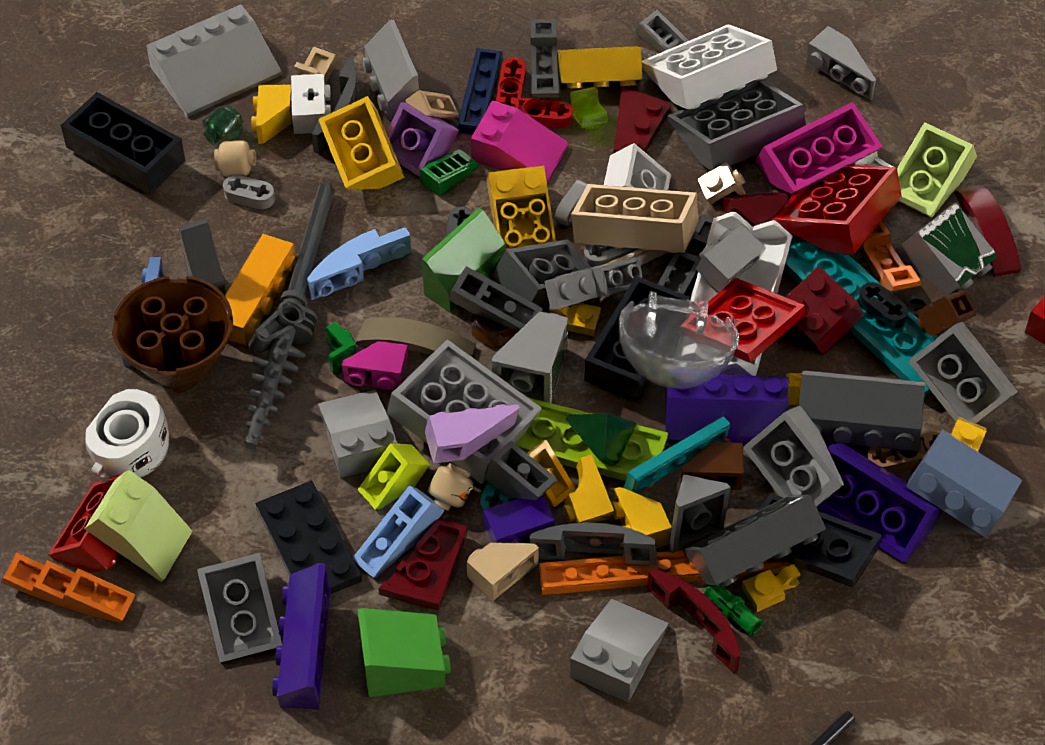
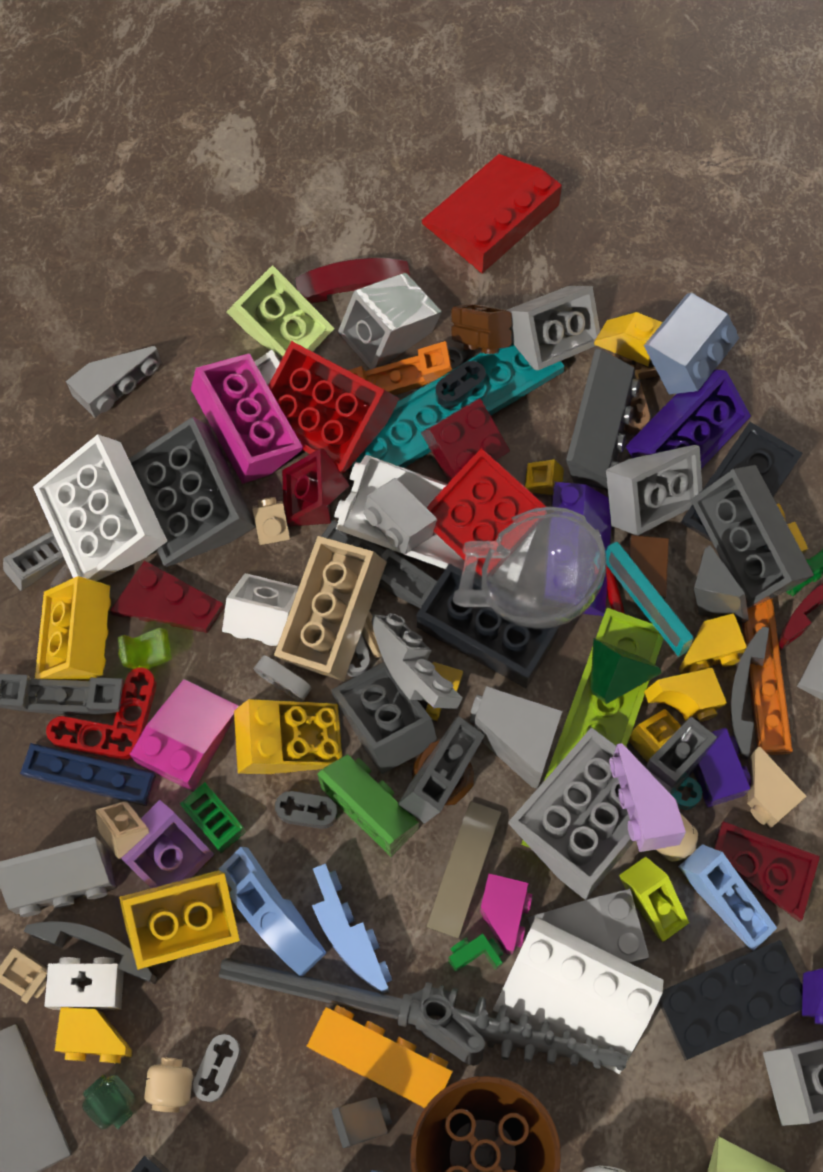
camera: 85 degrees left, 15 degrees up
(311, 410) = (579, 990): none -> white slope
(364, 207) = (270, 914): none -> medium blue slope

